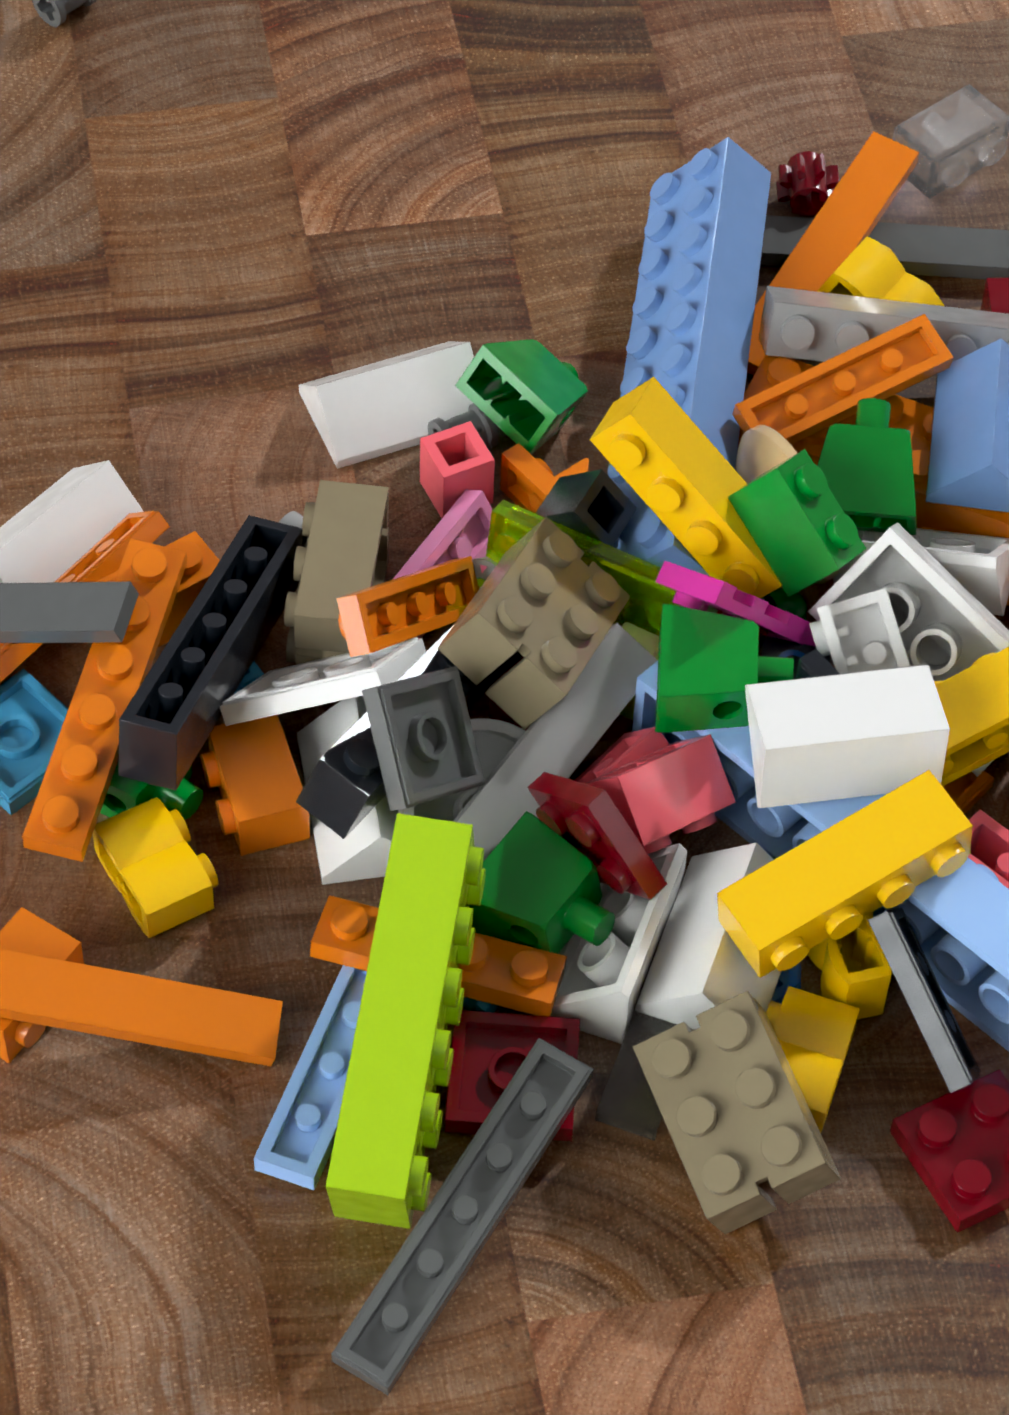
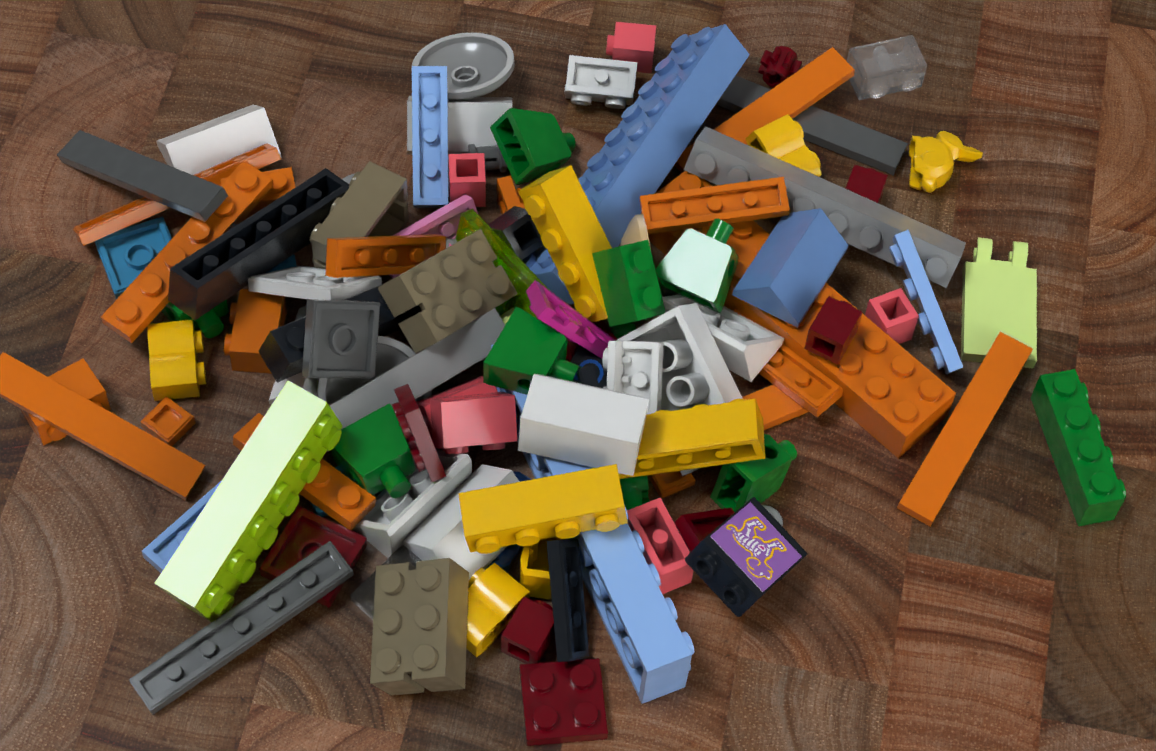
camera: 20 degrees right, 5 degrees up
(187, 956) = (168, 421): none -> orange tile
(367, 315) = (473, 61): none -> light grey dish
(375, 421) = (430, 136): none -> light blue plate
(568, 279) = (600, 81): none -> white bracket
(588, 219) = (633, 44): none -> coral brick
(884, 1067) = (529, 631): none -> dark red brick

